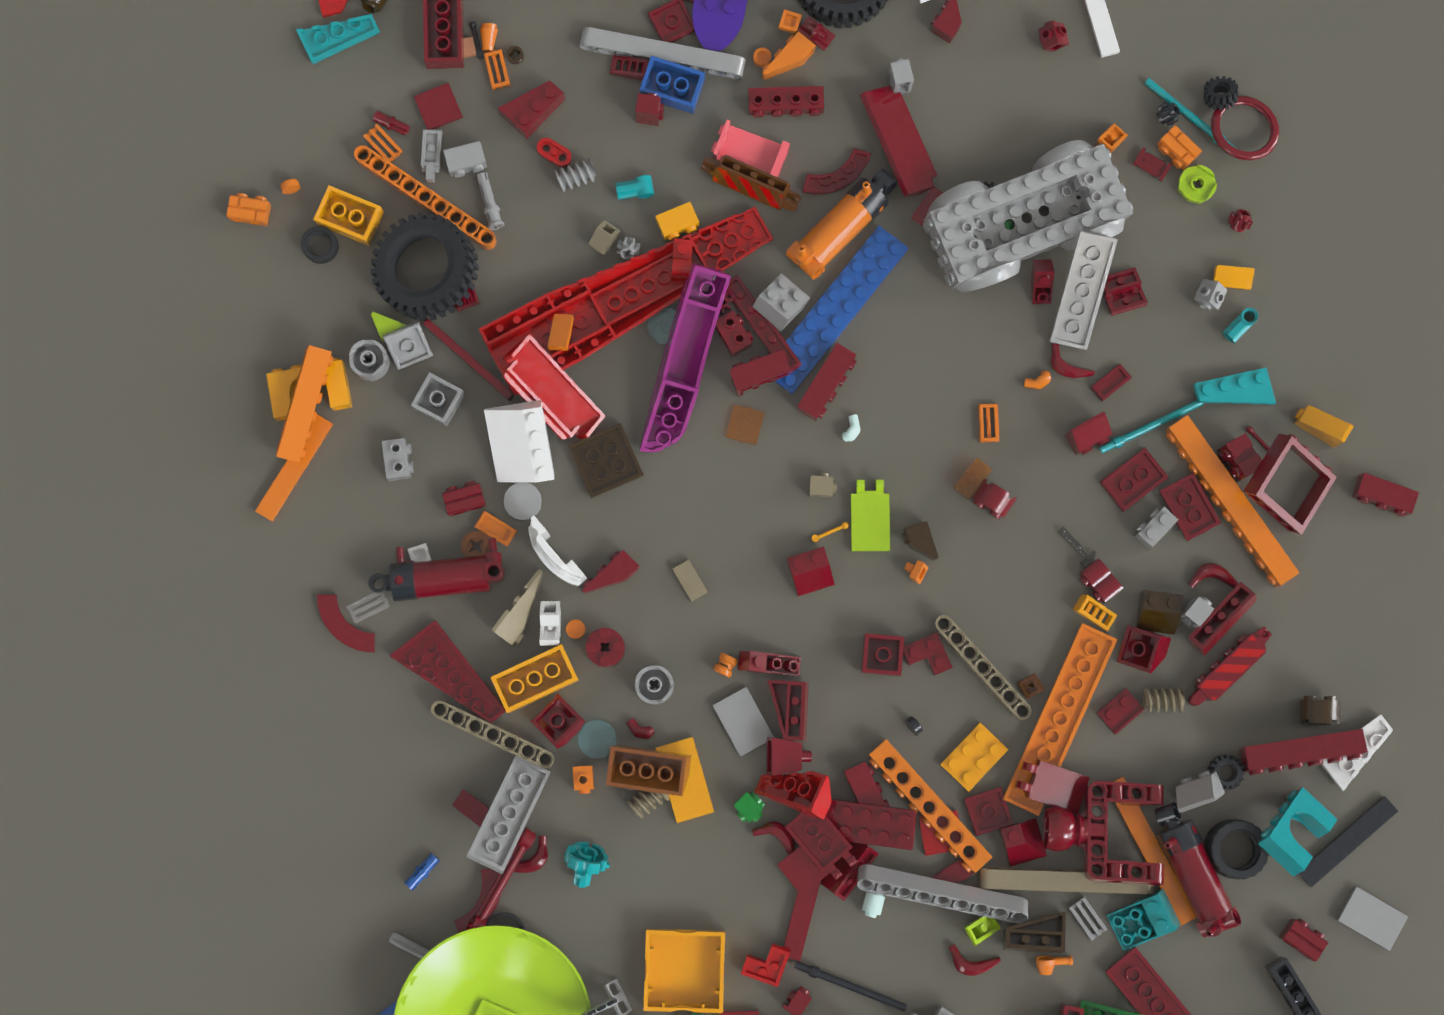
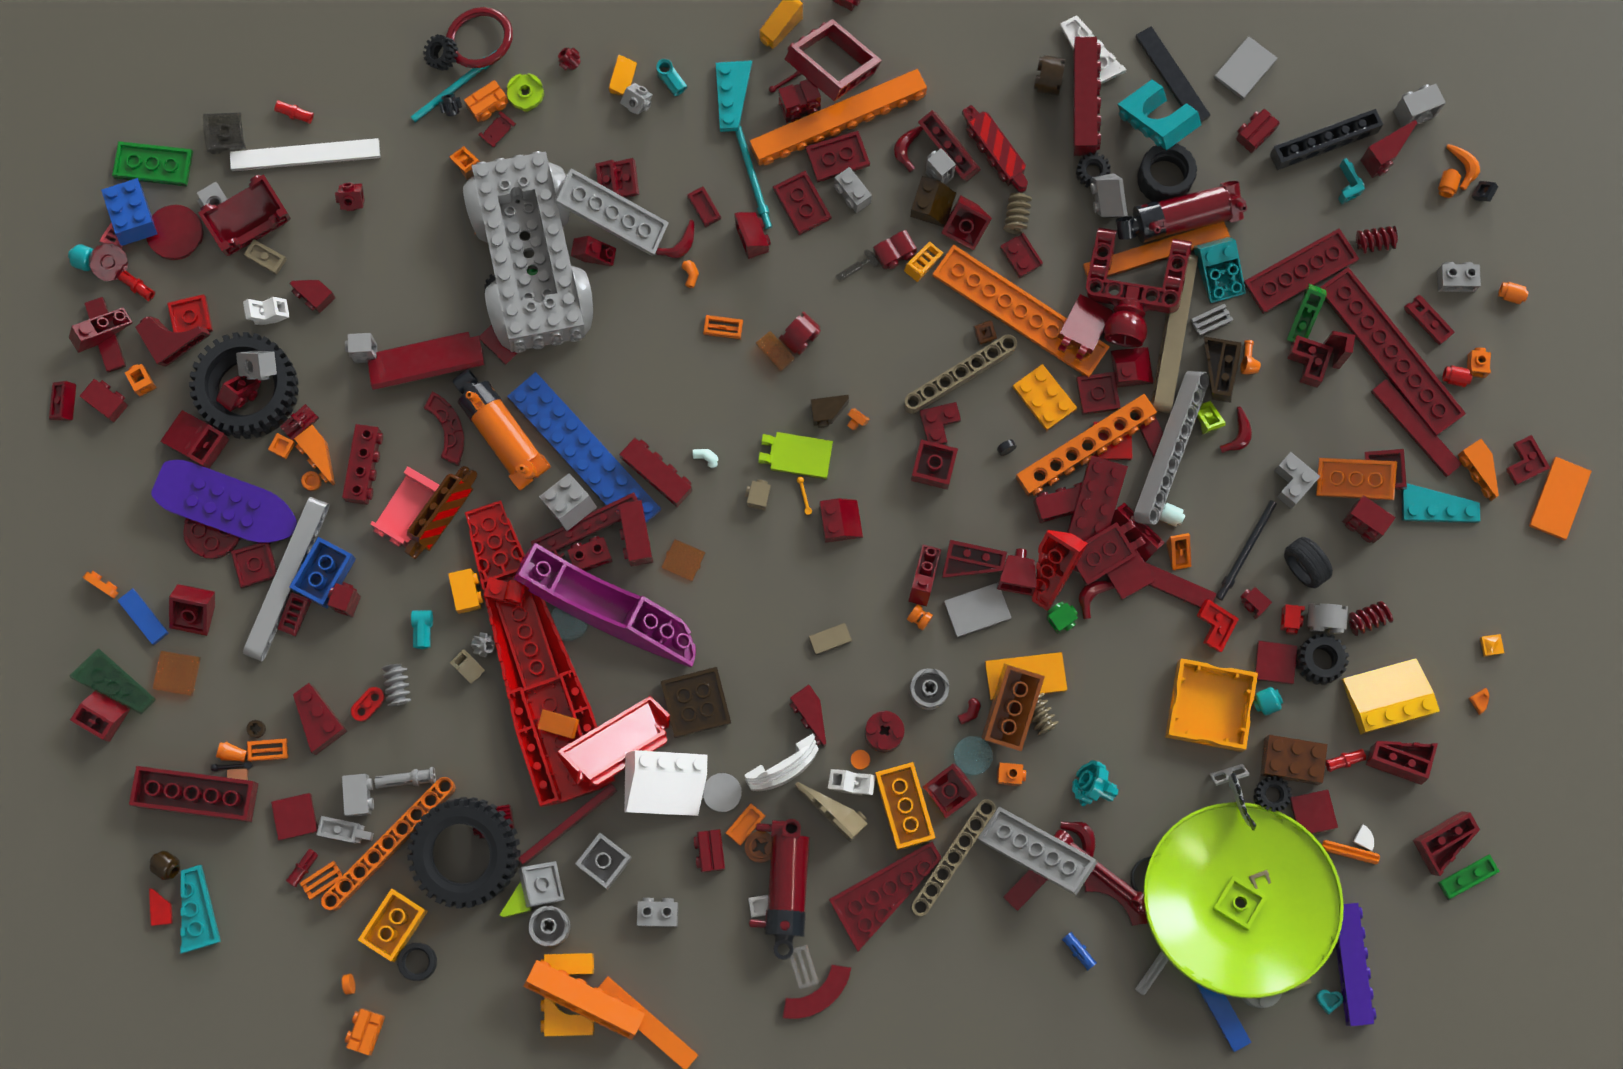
camera: 80 degrees left, 5 degrees down
(836, 917) = (1179, 551): none -> orange slope

